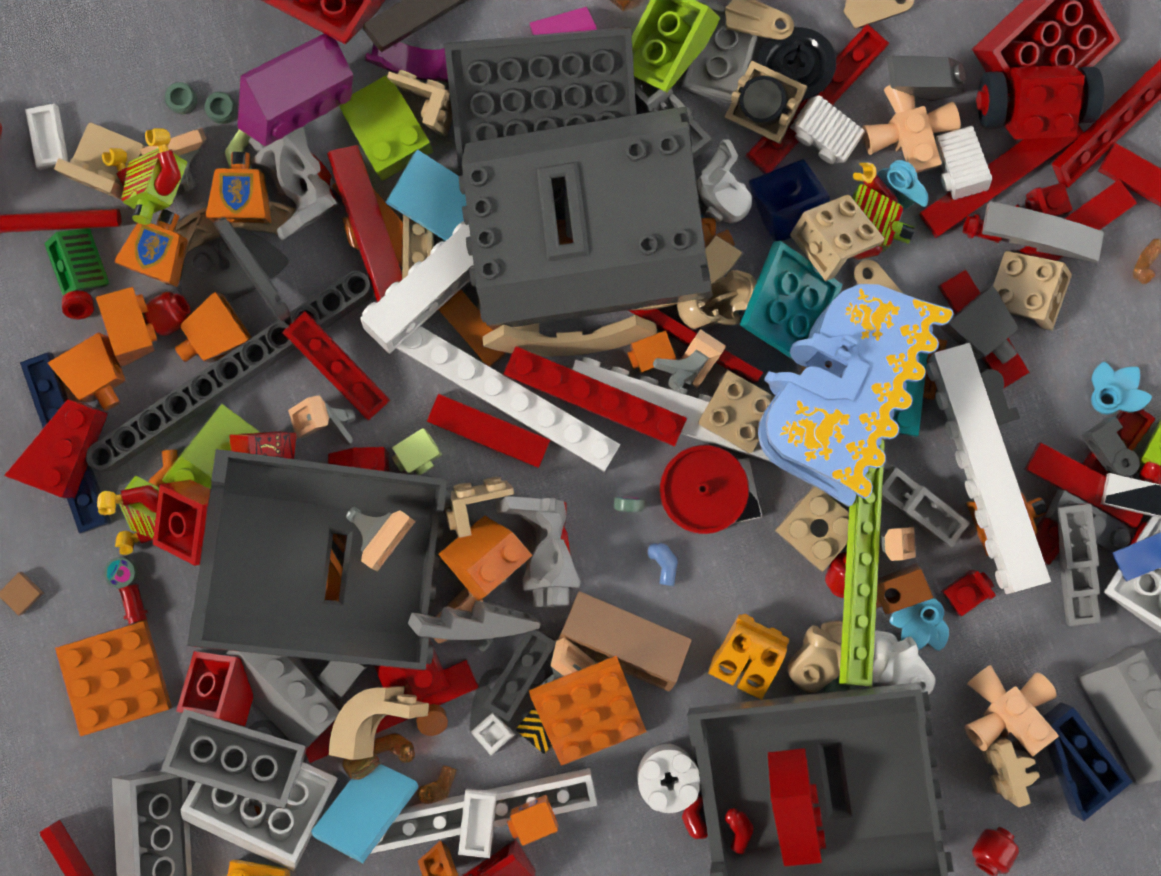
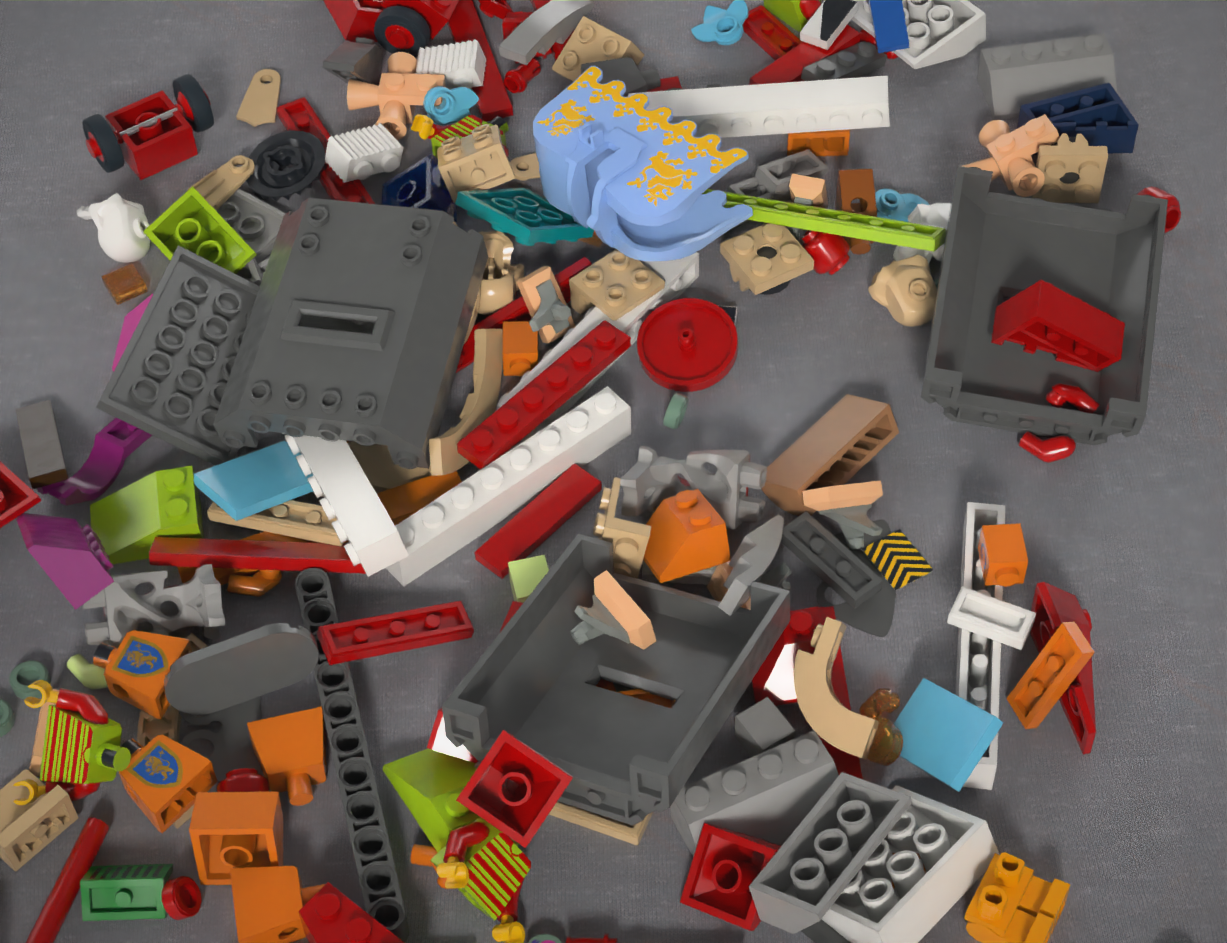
camera: 70 degrees left, 35 degrees down
(314, 415) = (443, 666): light nougat piece -> none
(433, 723) = (856, 660): dark orange tile -> none
(437, 110) = (143, 447): tan bracket -> none
(438, 789) = (939, 672): clear orange arm -> none
(492, 733) = (891, 609): white tile -> none
(588, 710) = (894, 496): orange plate -> none
(666, 560) = (755, 398): medium blue arm -> none
(684, 785) = (996, 451): white brick -> none
(750, 654) = (882, 344): light orange hips -> none
(765, 101) = (309, 177): piece -> none
(969, 591) = (878, 158): red bracket -> none
(1078, 564) = (903, 87): light grey slope -> none
(1110, 448) = (775, 32): dark grey leg -> none

